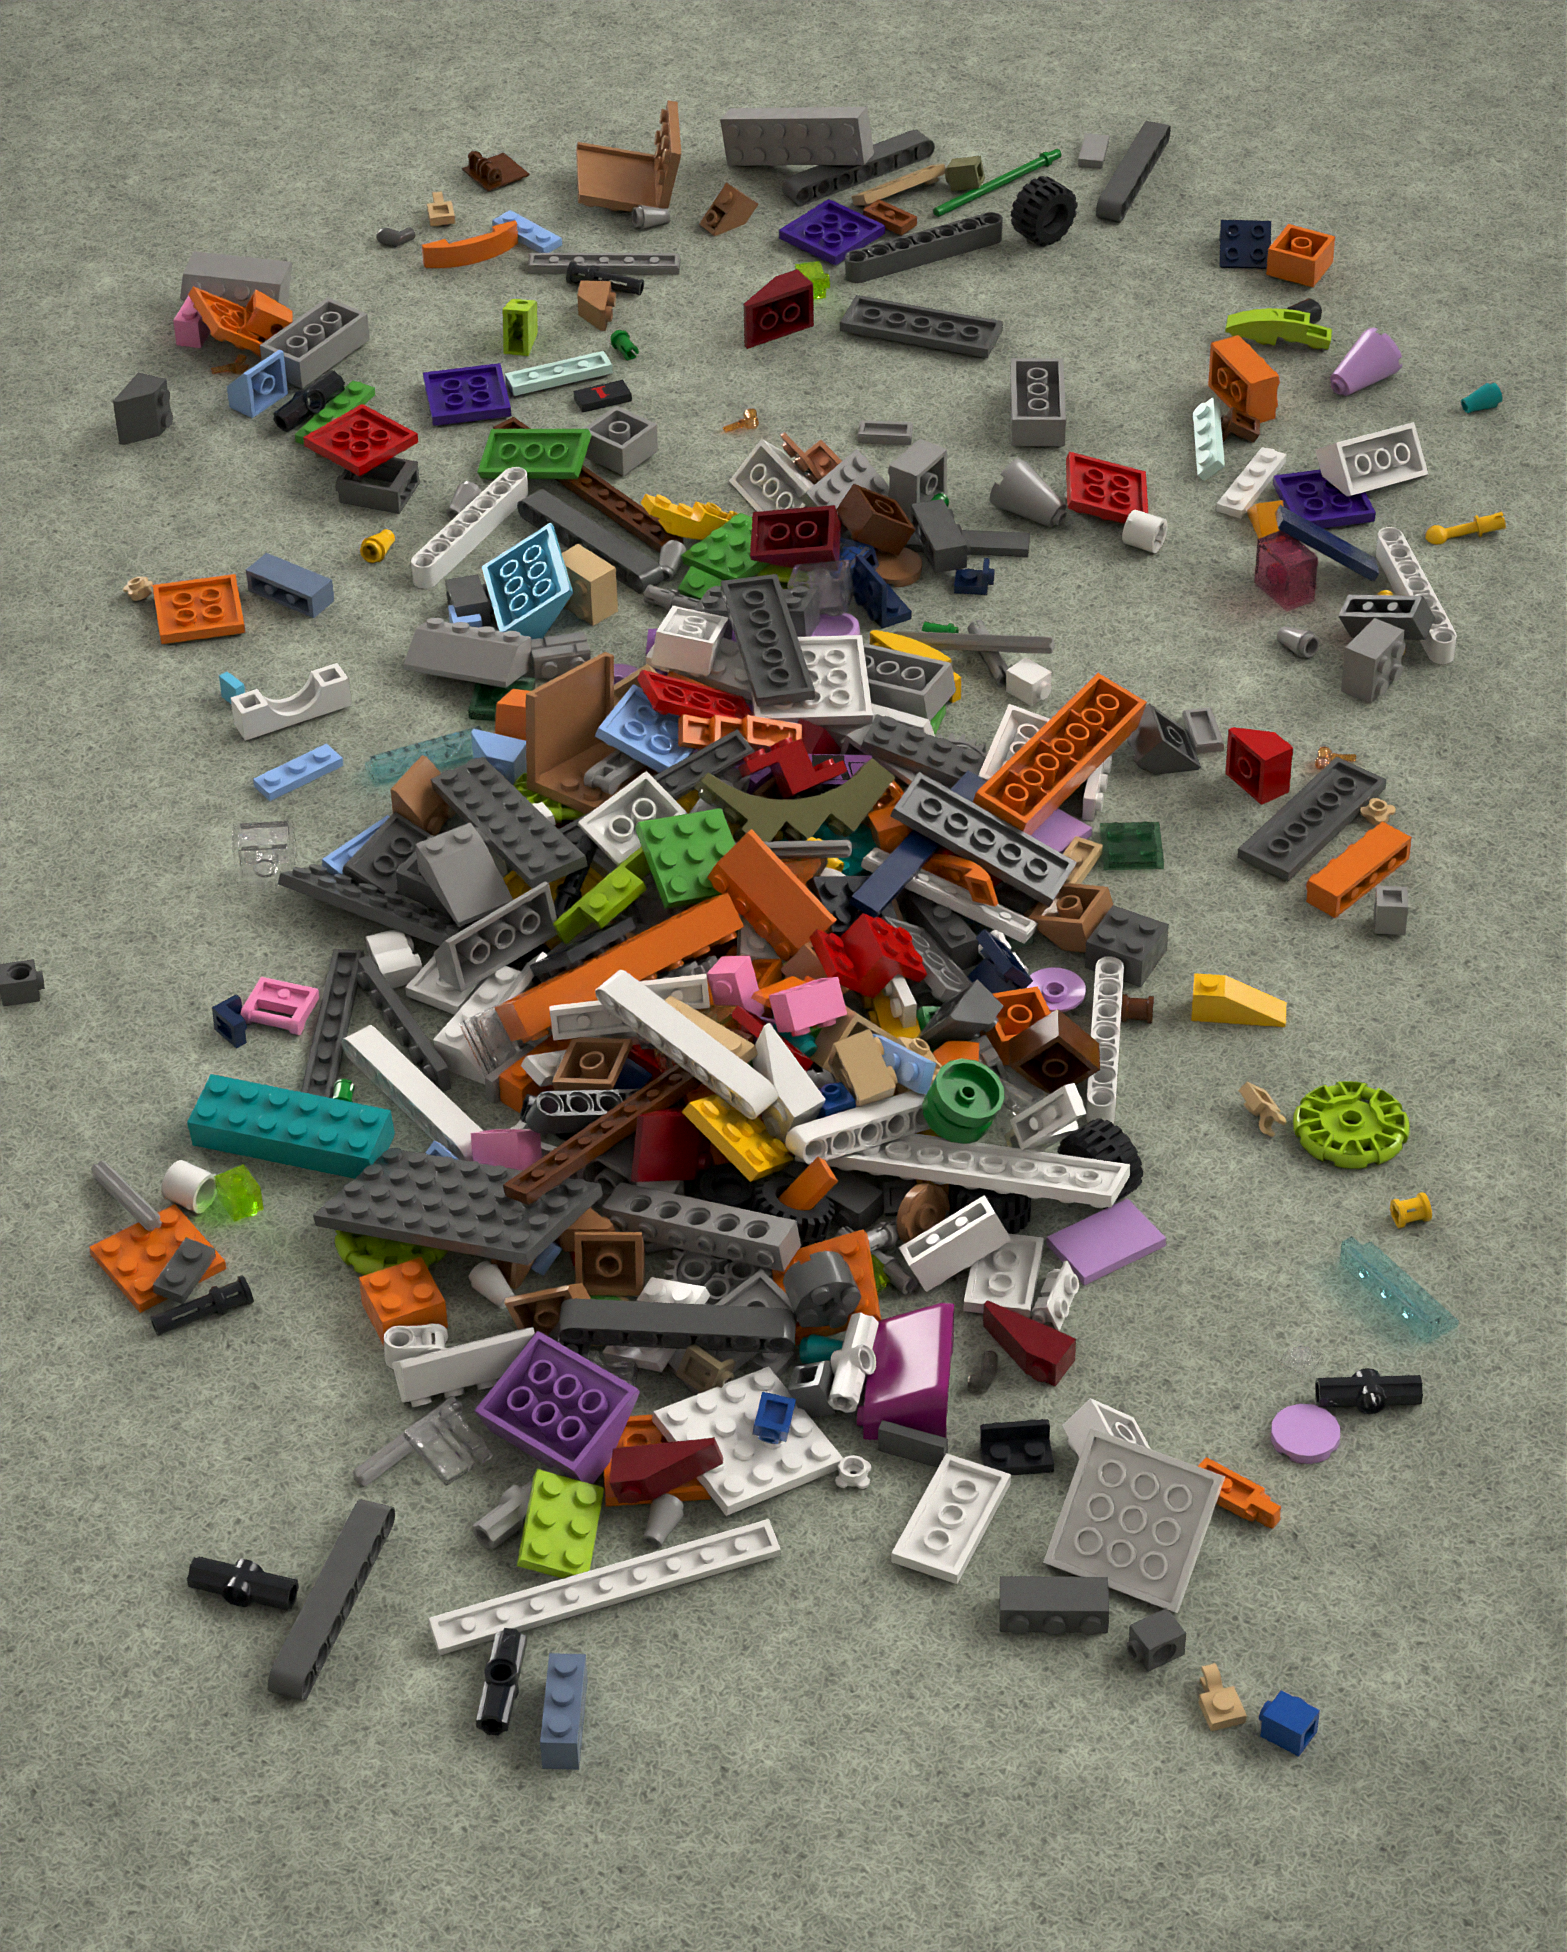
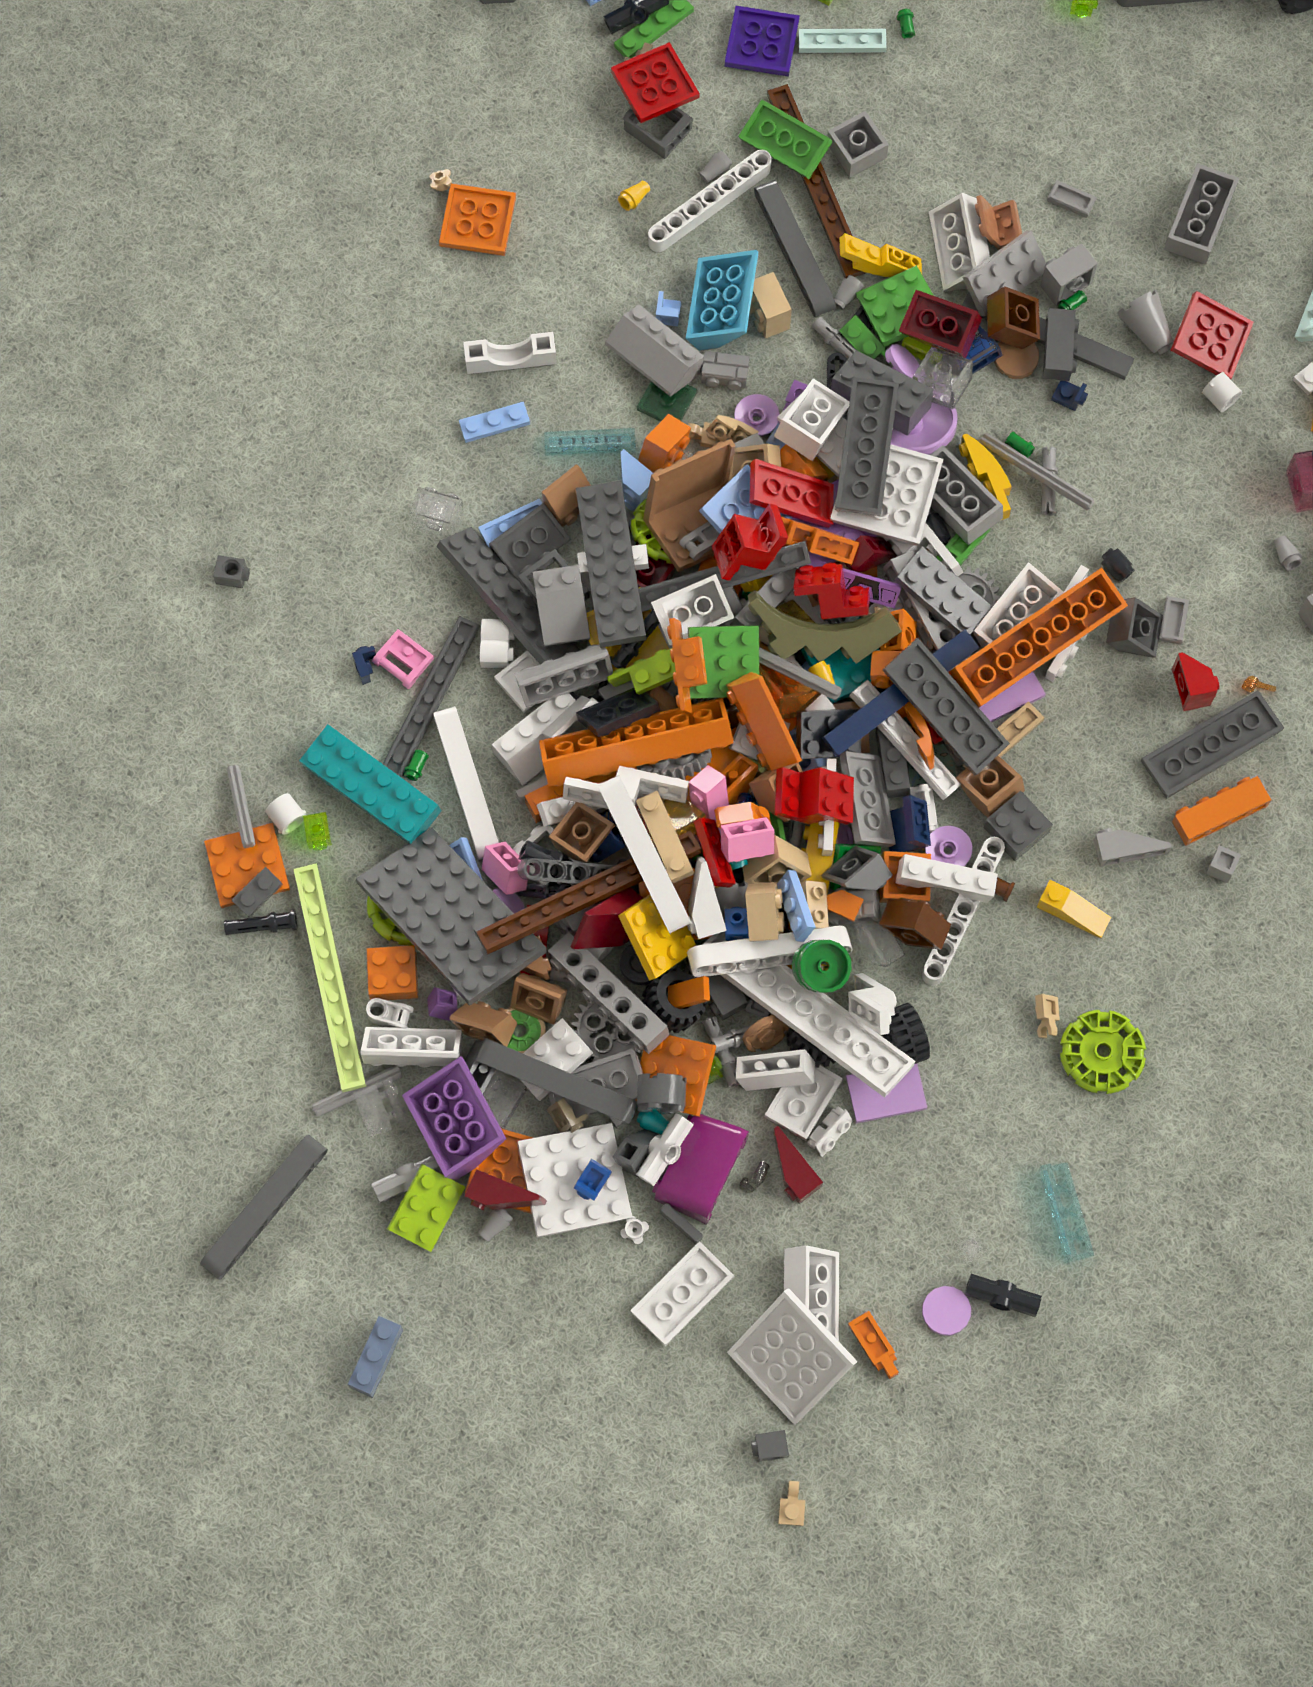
camera: 20 degrees right, 30 degrees up
(230, 686) = (473, 321): medium azure tile -> none
(242, 1583) = (212, 1172): black piece -> none
(290, 585) = (553, 218): sand blue brick -> none
(322, 1331) = (330, 978): none -> yellowish green plate
(405, 1026) = (481, 720): dark grey plate -> none
(469, 597) = (677, 286): dark grey brick -> none
(483, 1318) = (442, 1003): none -> medium lavender slope
(488, 1040) = (528, 759): clear plate -> none
(501, 1681) = (337, 1330): black piece -> none
(602, 396) = (867, 77): black tile -> none
(604, 1586) = (439, 1264): white plate -> none
(653, 855) = (689, 664): none -> orange bracket
(682, 736) = (749, 542): none -> red bracket
(749, 421) = (971, 148): clear orange hand -> none
(779, 309) = (1040, 32): dark red slope -> none
(877, 596) = (989, 394): dark blue bracket -> none
(921, 326) = (1150, 83): dark grey plate -> none
(1017, 1447) = (748, 1252): black bracket -> none
(1028, 681) = (1063, 525): white brick -> none
(1033, 995) = (967, 881): none -> white arch
(1053, 1604) = (717, 1393): dark grey brick -> none
(1131, 845) = (1068, 720): clear green plate -> none
(1268, 930) = (1124, 846): none -> light grey slope
(1289, 1722) = (827, 1542): blue brick -> none
(1377, 811) = (1262, 759): tan plate -> none
(1422, 1210) = (1106, 1147): yellow bush -> none

